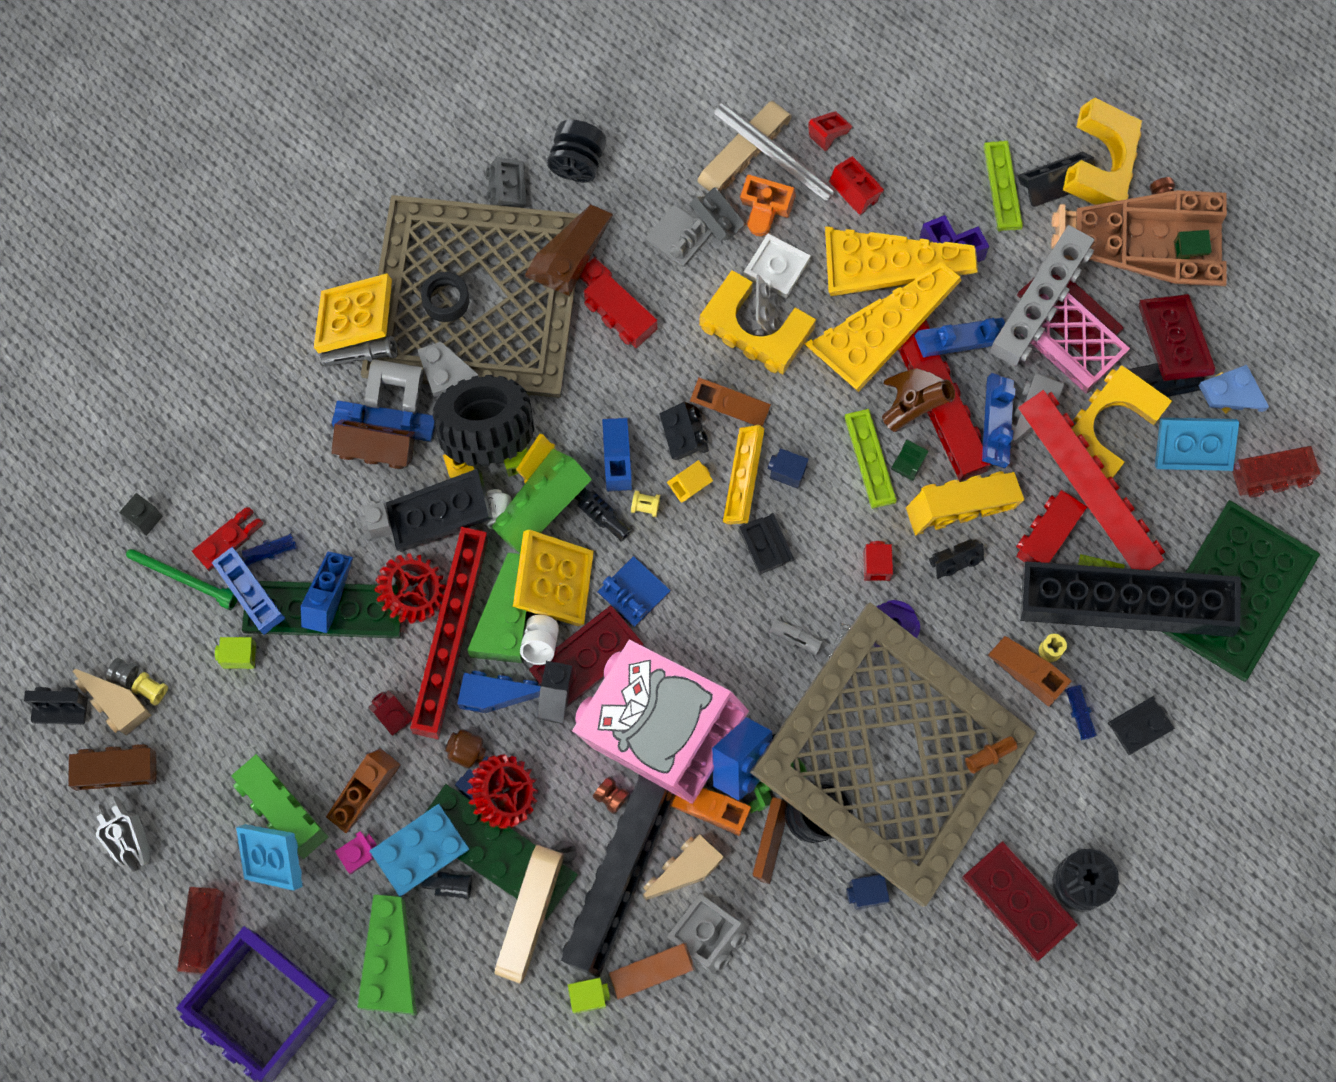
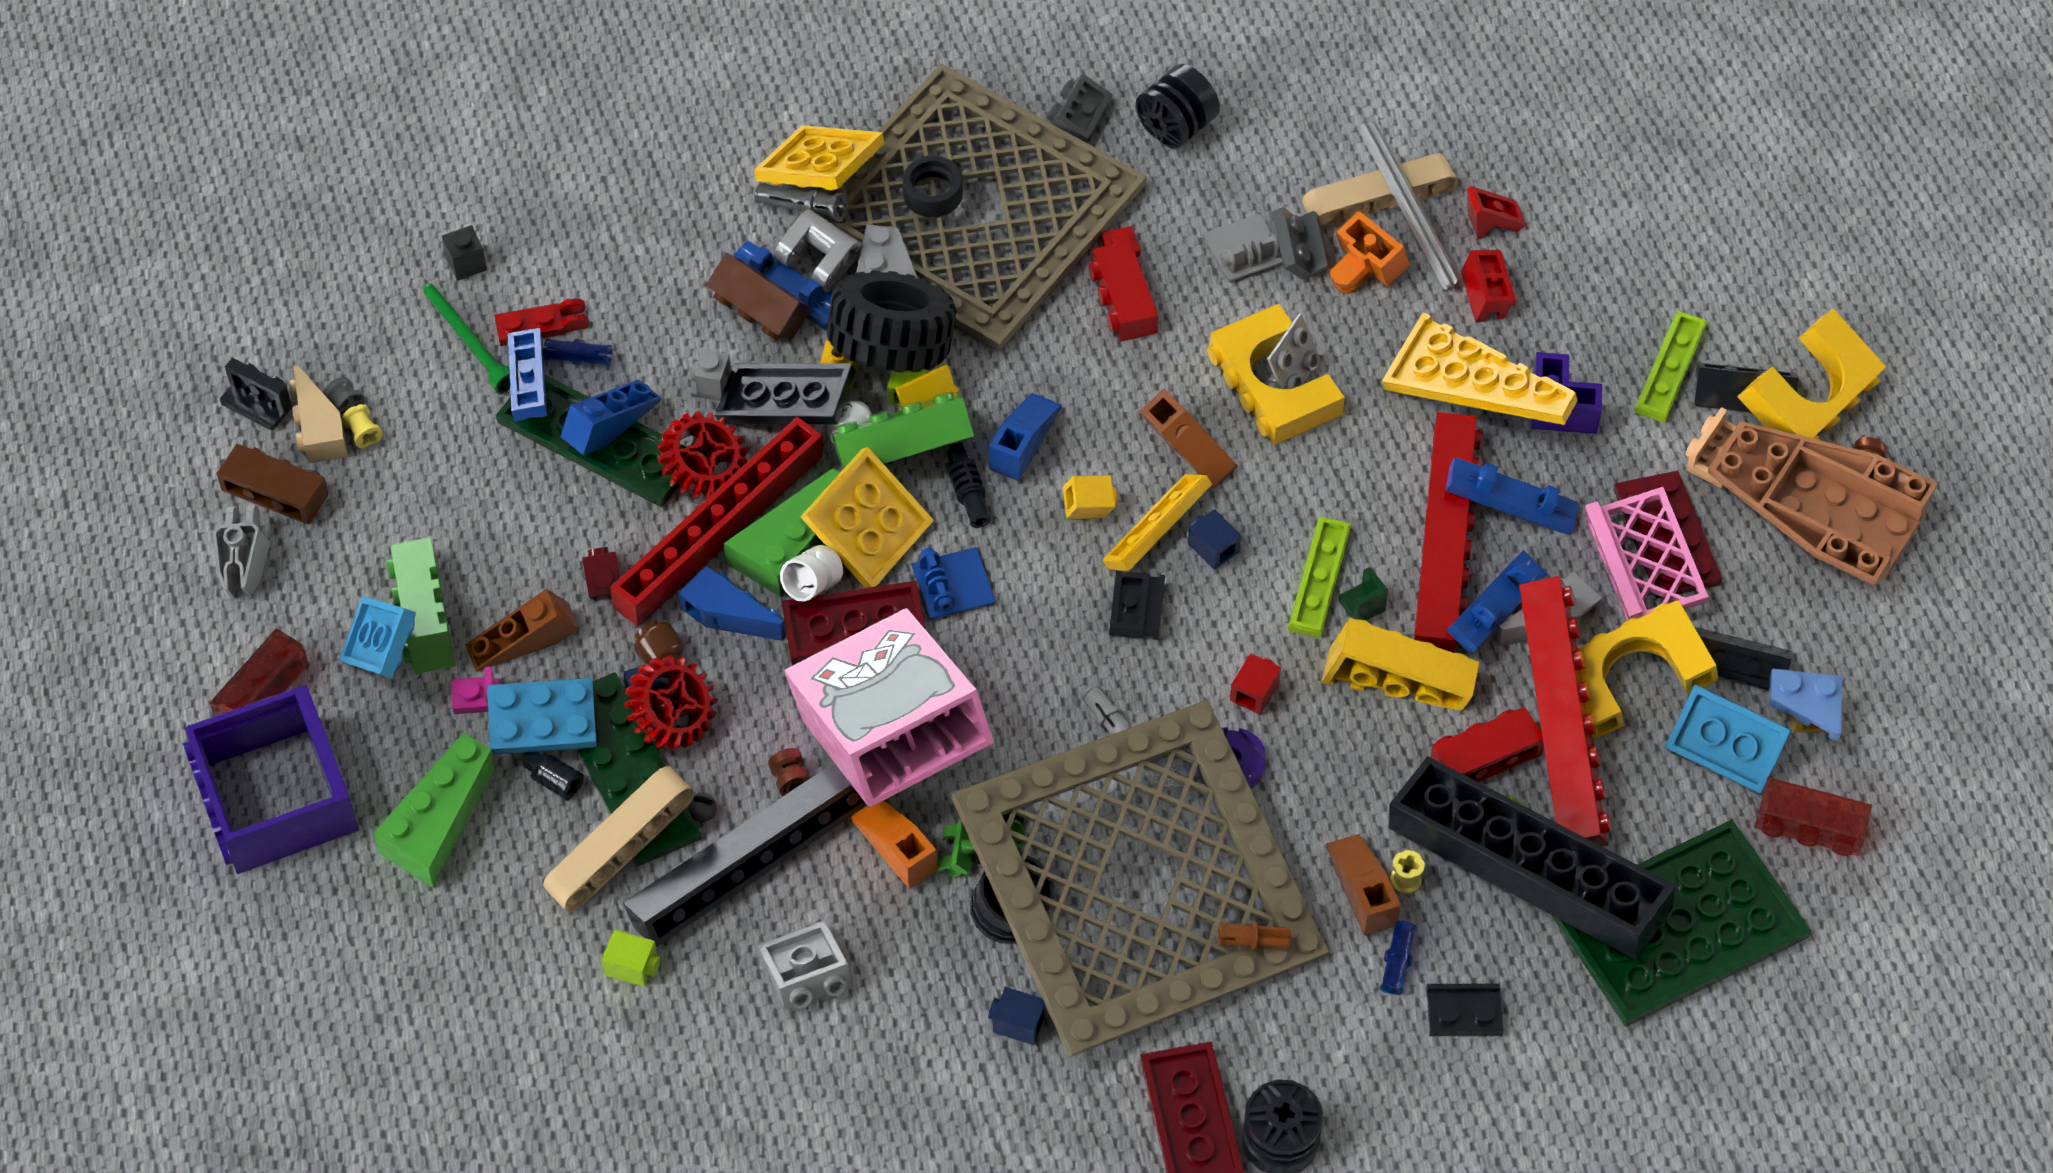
camera: 30 degrees right, 15 degrees down
(236, 652) = (476, 434): lime brick -> none
(555, 692) = (794, 630): black slope -> none
(568, 253) = (1100, 207): reddish brown wedge -> none
(639, 500) = (1024, 499): light yellow bush -> none
(652, 971) = (717, 968): dark orange tile -> none
(684, 430) = (1119, 446): black bracket -> none
(690, 867) = (825, 888): tan slope -> none
(737, 755) = (941, 775): blue brick -> none
(770, 841) = (938, 908): dark orange tile -> none
(777, 265) = (1341, 328): white plate -> none
(876, 332) = (1412, 439): yellow wing -> none
(916, 395) = (1415, 525): reddish brown pin -> none
(967, 554) = (1353, 728): black hinge -> none
(1070, 243) = (1612, 487): light grey brick -> none
(1176, 337) = (1776, 613): dark red plate -> none
(1192, 244) = (1859, 518): dark green panel -> none

